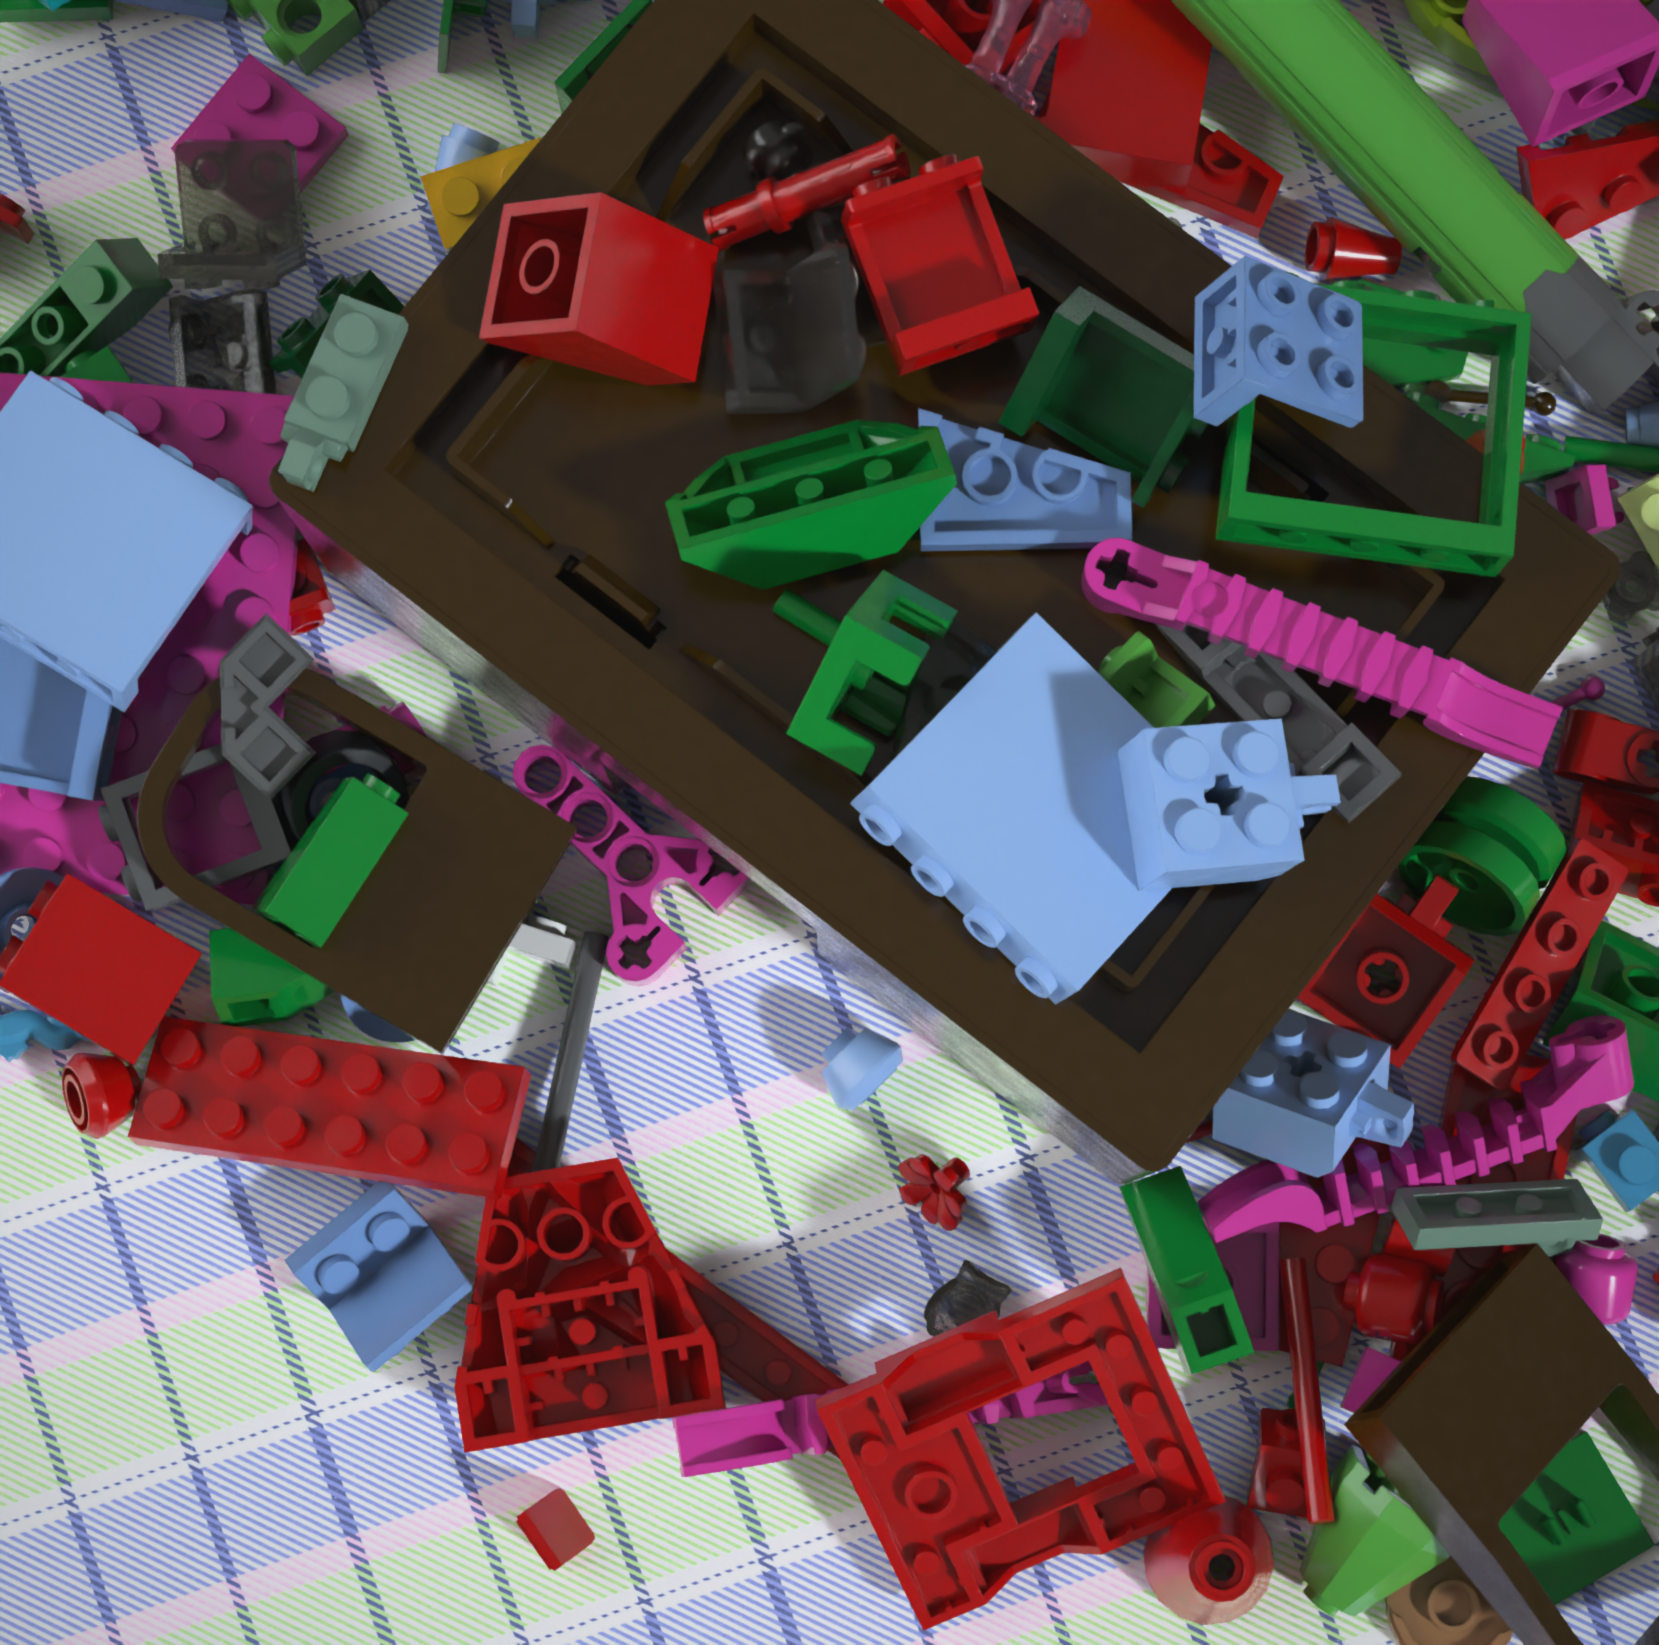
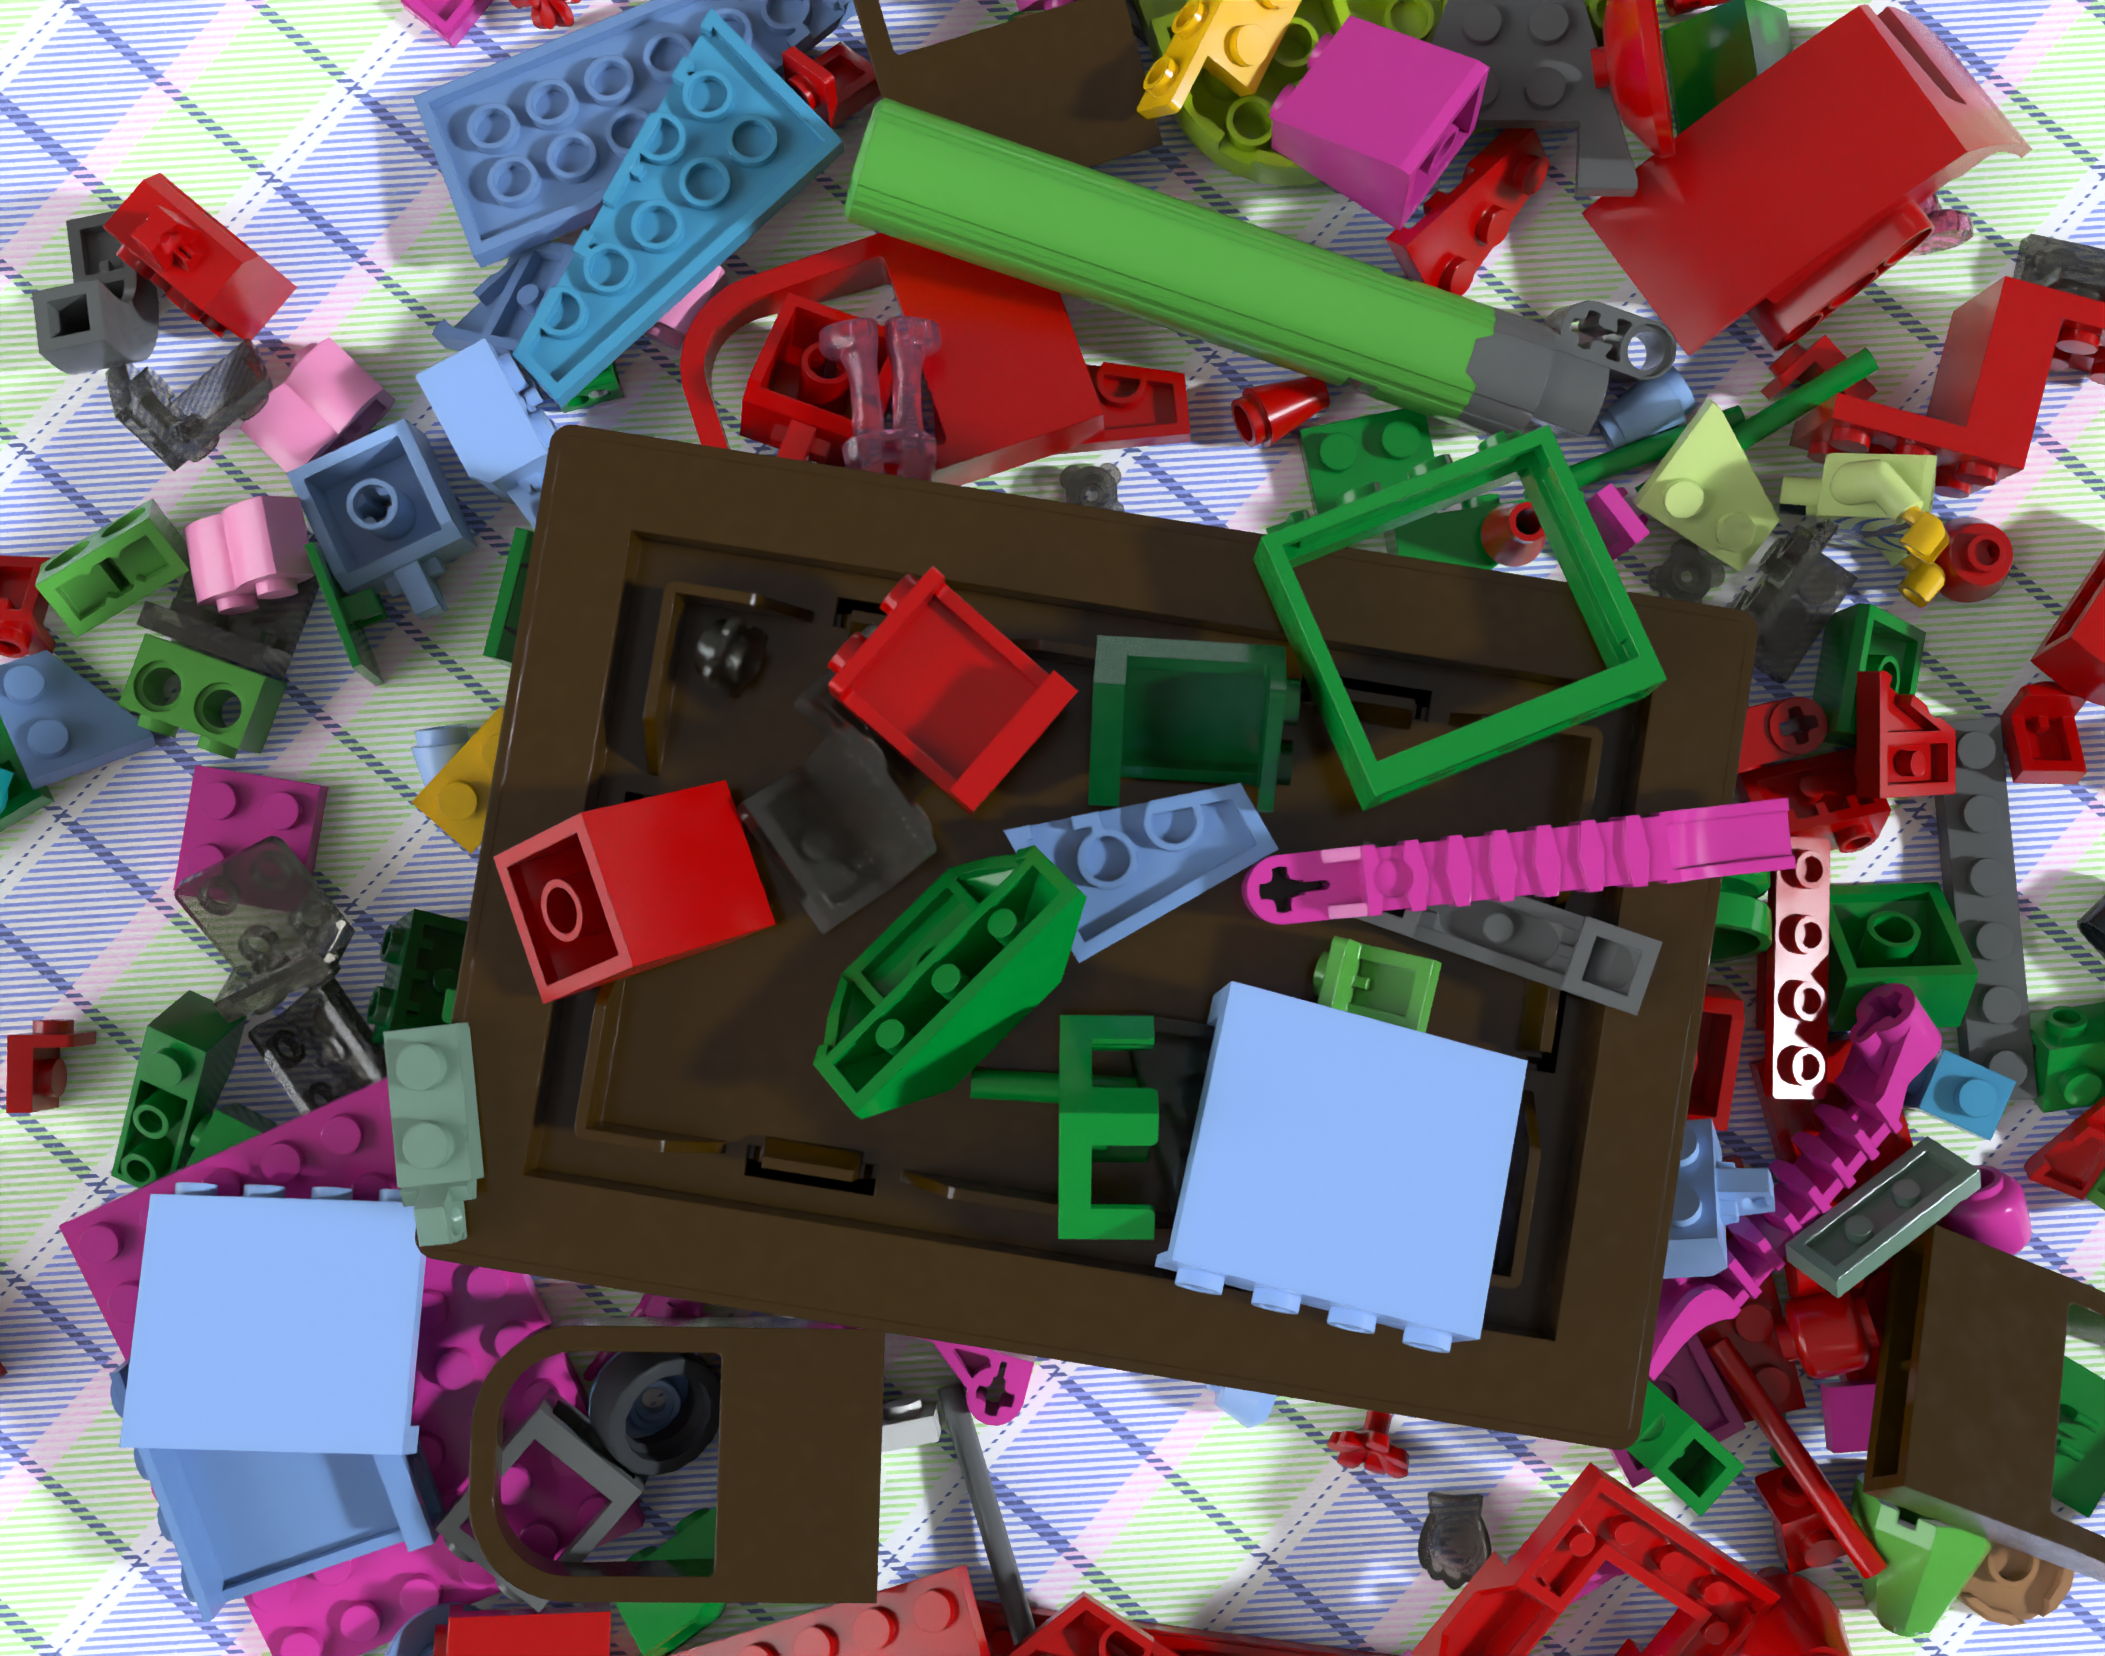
camera: 30 degrees left, 5 degrees up
(251, 732) = (544, 1415): dark grey tile -> none
(332, 860) = (681, 1495): green slope -> none
(781, 202) = (760, 705): red pin -> none
(1252, 808) = (1553, 1073): light blue hinge -> none
(1276, 339) = (1329, 600): medium blue bracket -> none

